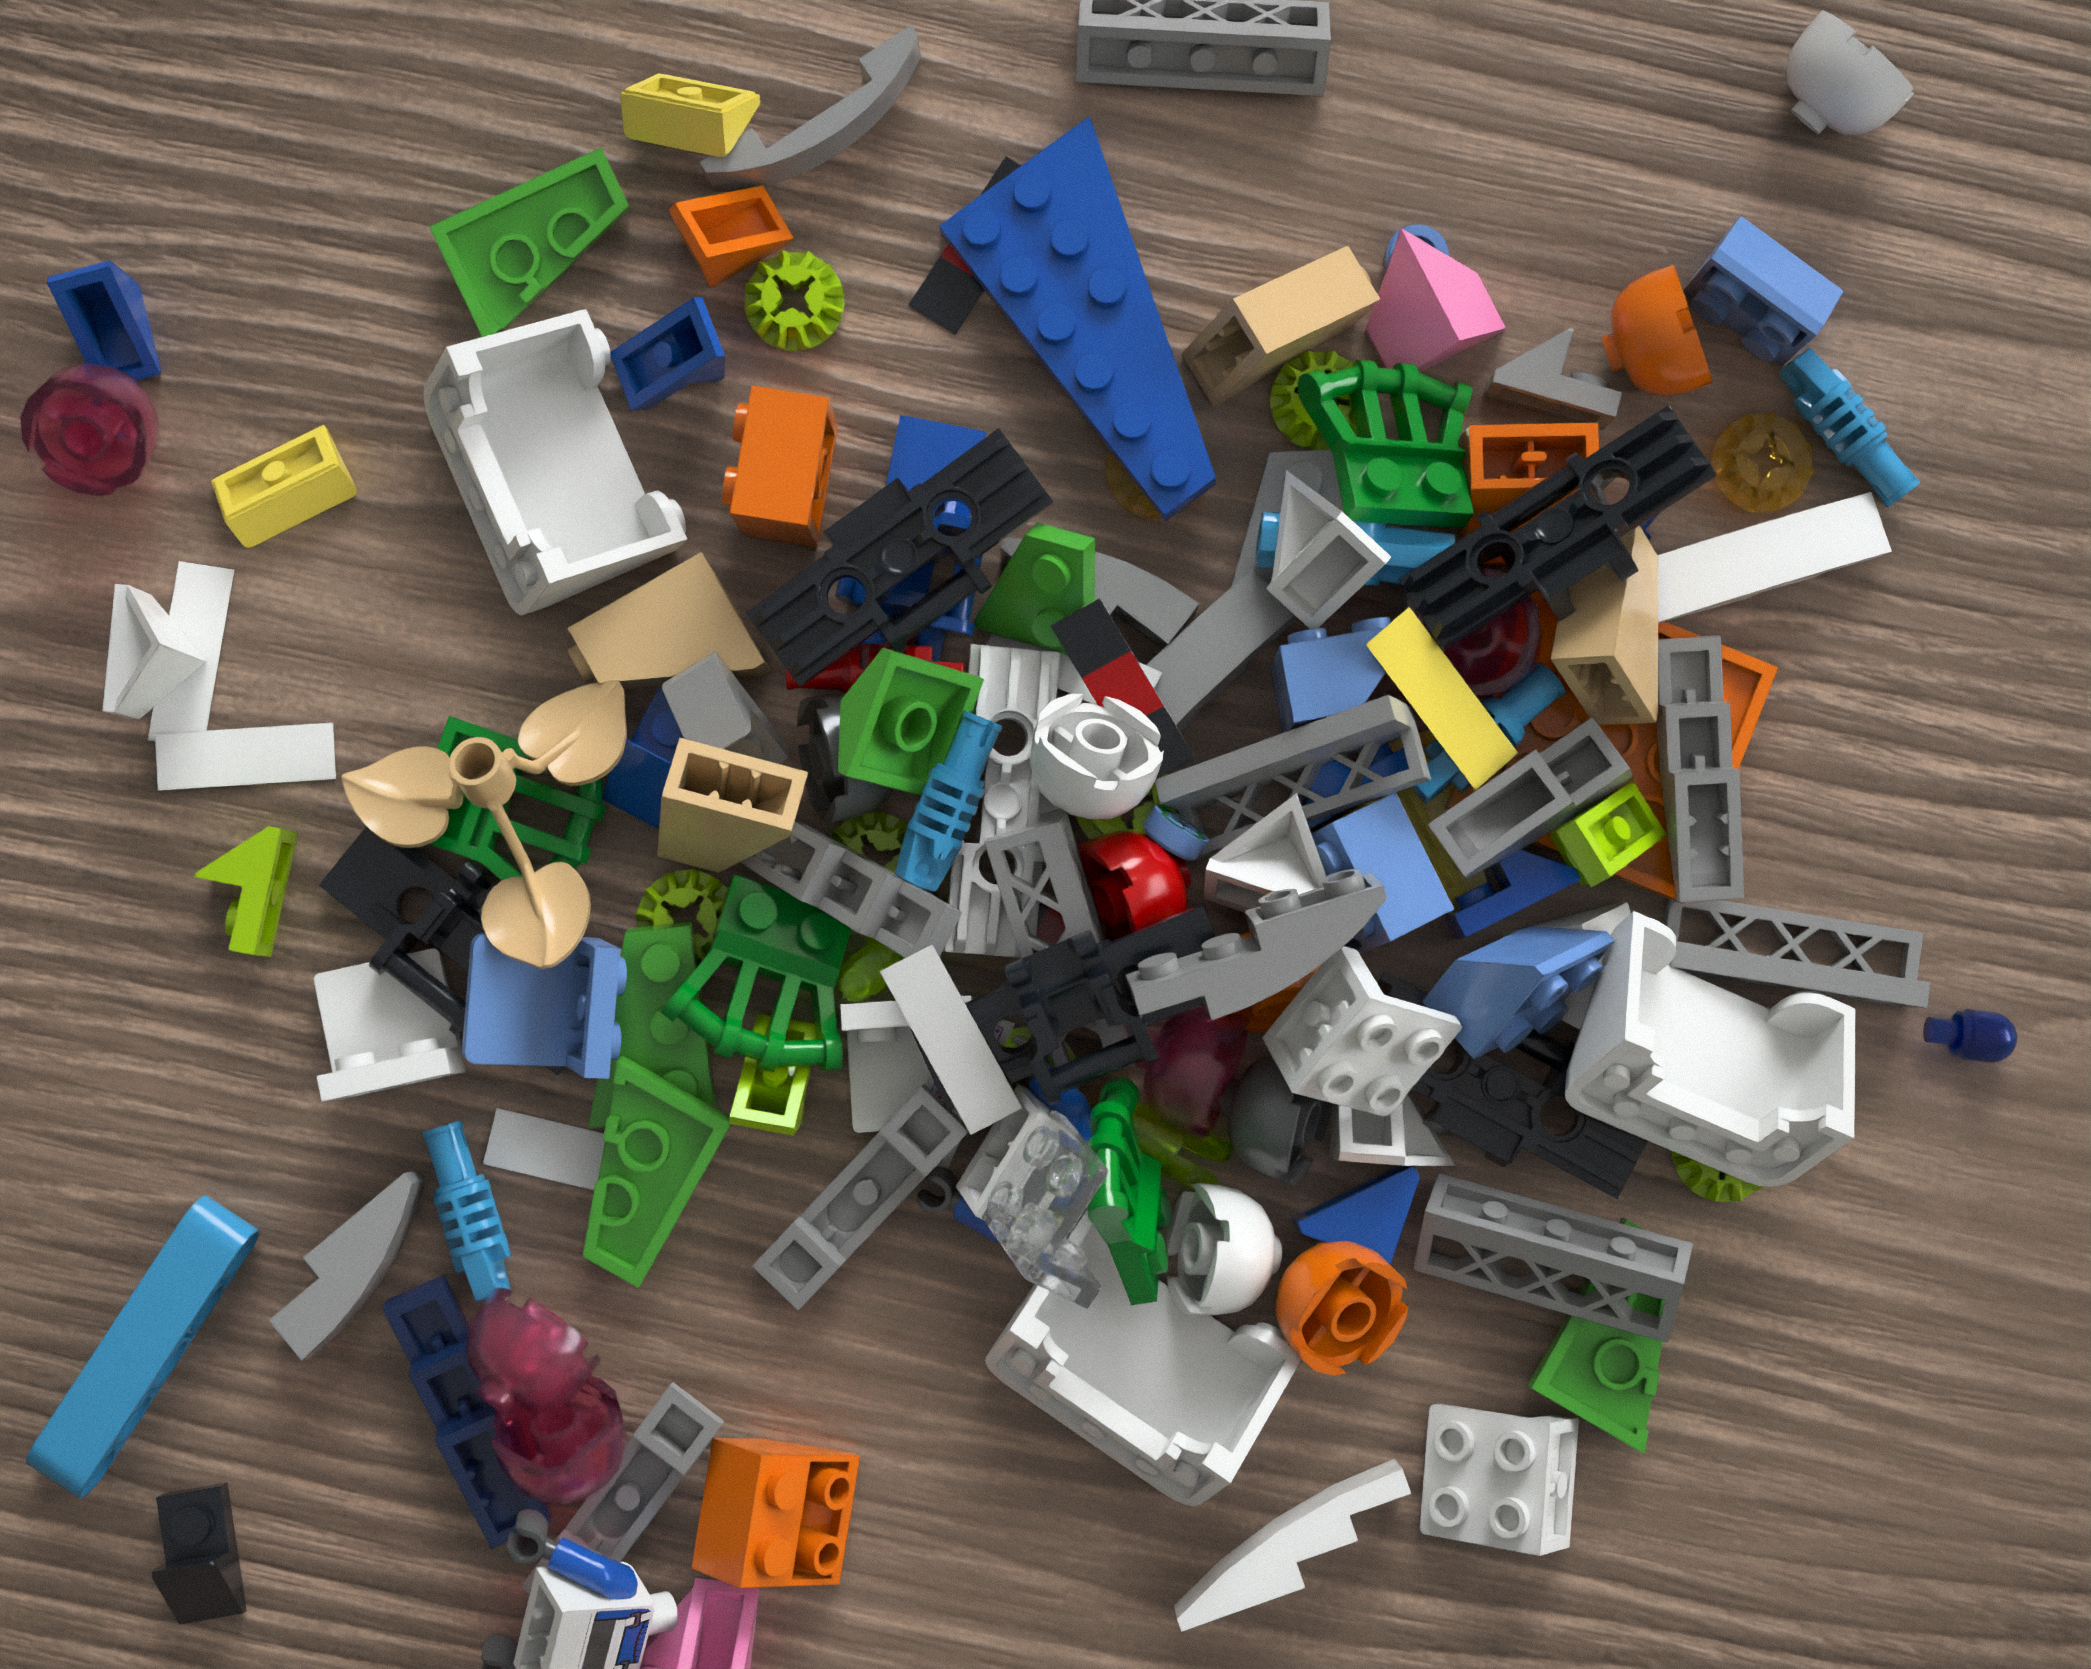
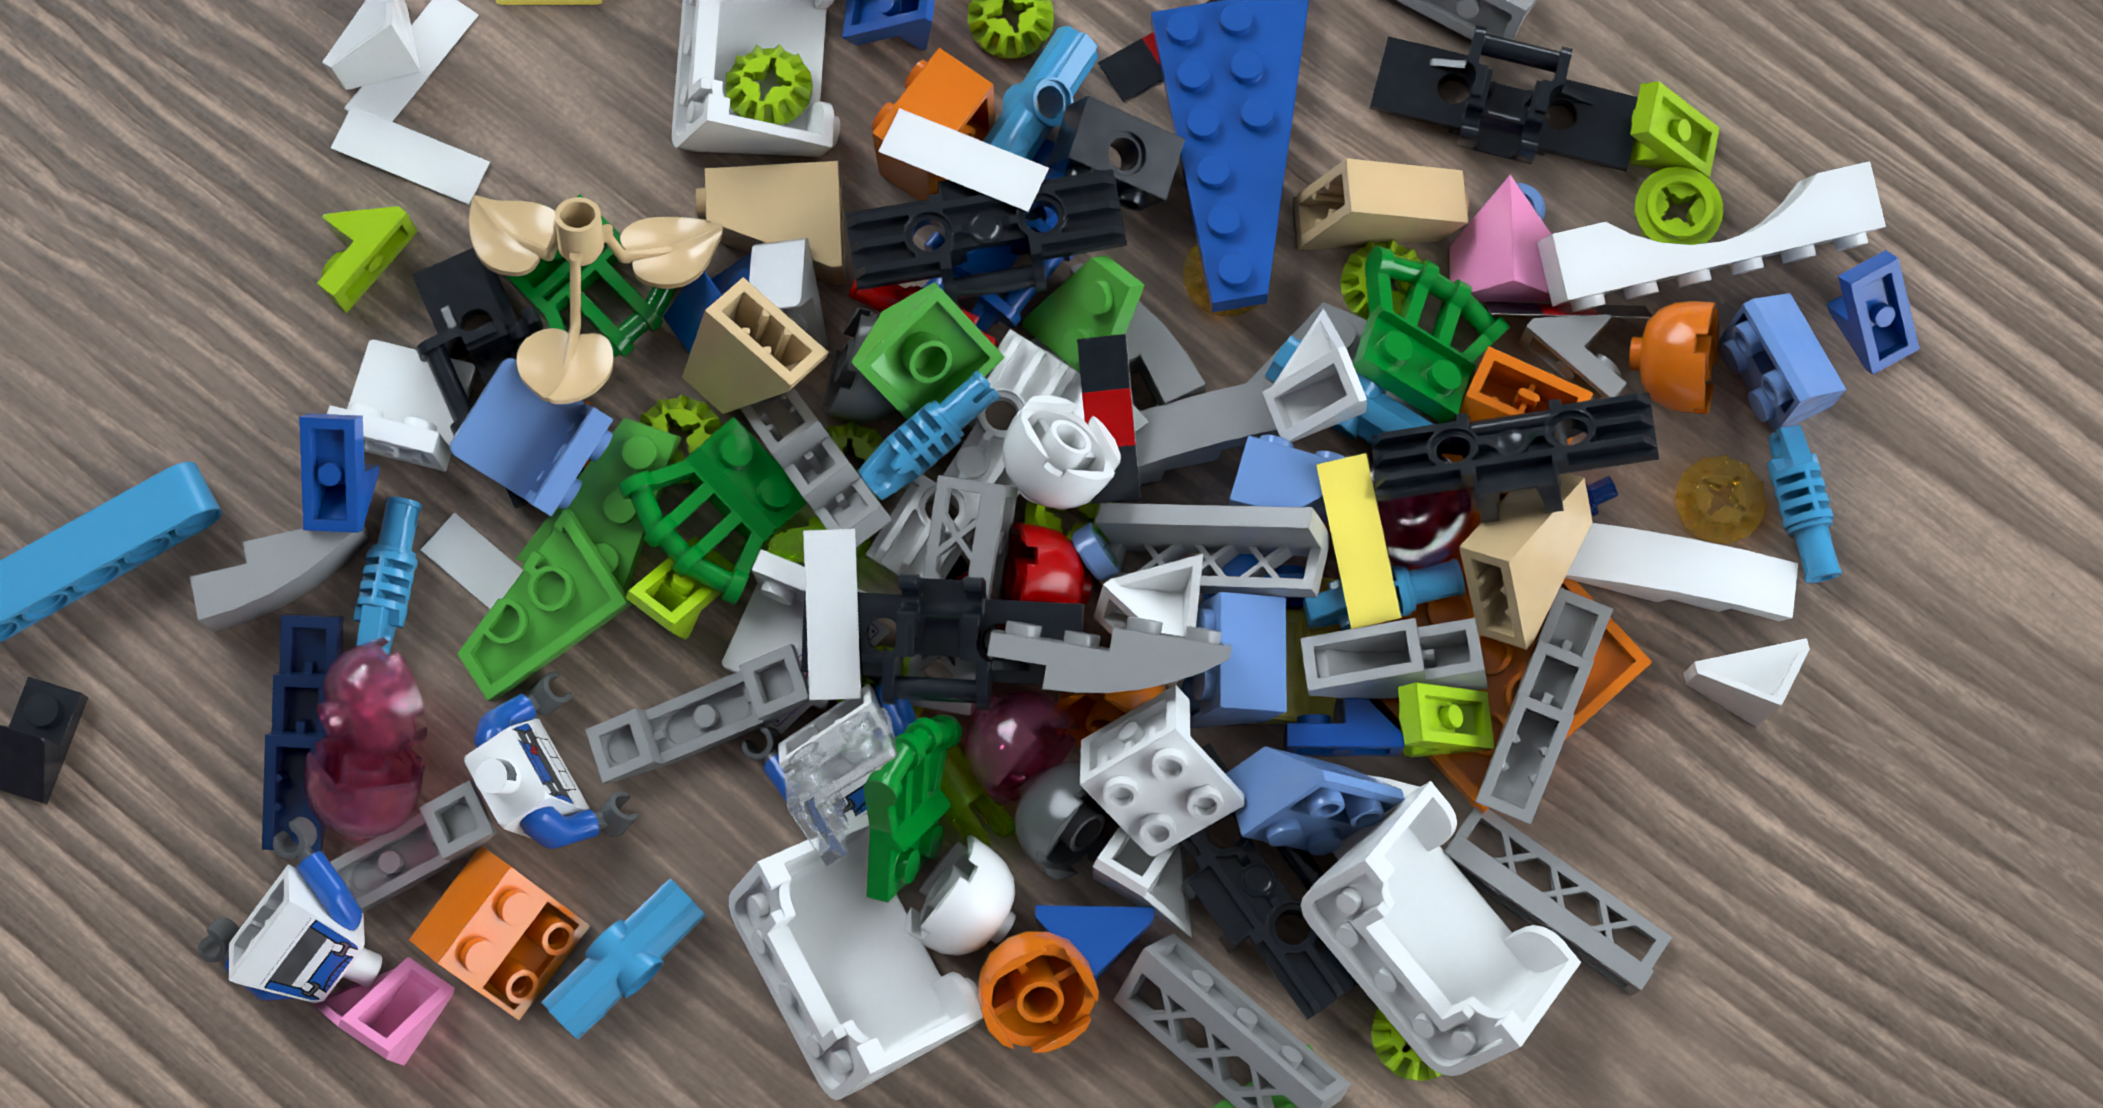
camera: 30 degrees right, 10 degrees down
(361, 1144) = (333, 473): none -> blue slope
(607, 515) = (782, 103): none -> lime gear
(723, 1350) = (528, 780): none -> torso
(841, 496) = (963, 159): none -> white sticker
(874, 385) = (1050, 81): none -> dark azure piece
(913, 1475) = (623, 959): none -> dark azure piece
(1013, 384) = (1145, 150): none -> black brick
(1354, 163) = (1503, 117): none -> black piece
(1520, 338) = (1566, 310): none -> black sticker
(1535, 100) = (1671, 132): none -> lime slope
(1607, 170) = (1679, 186): none -> lime gear
(1721, 113) = (1604, 259): none -> white arch
(1829, 191) = (1875, 312): none -> blue slope
(1842, 80) = (1925, 230): white cylinder -> none
(1889, 638) = (1750, 681): none -> white slope
(1973, 1035) = (1675, 1041): clear blue cylinder -> none

